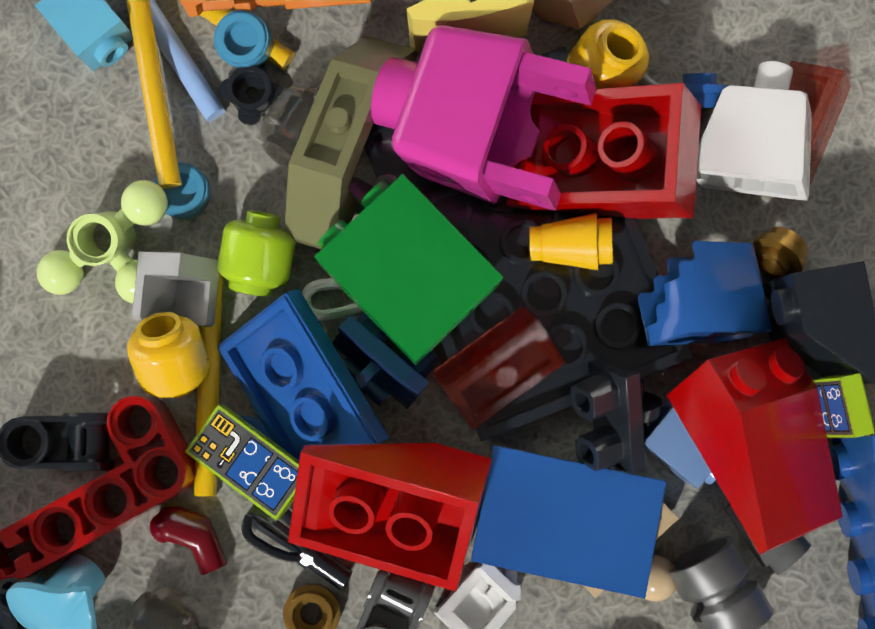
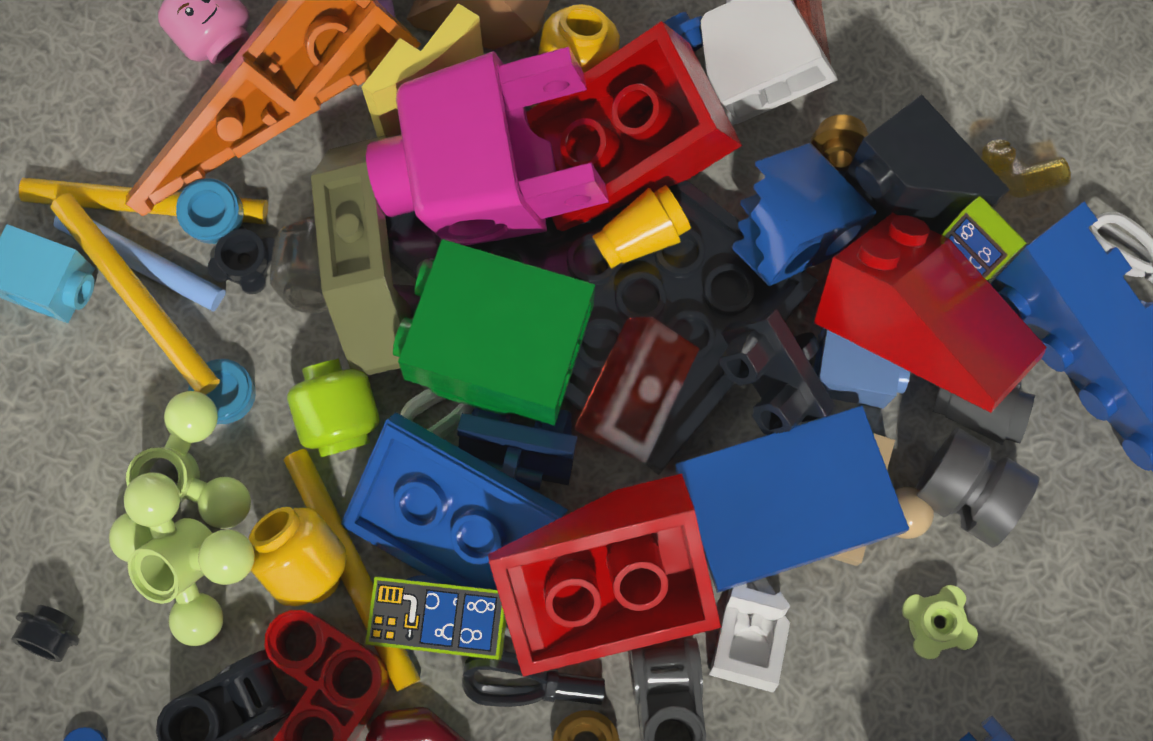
camera: 35 degrees left, 10 degrees down
(81, 309) = (180, 556): none -> yellowish green piece
(176, 285) = (267, 477): light grey panel -> none

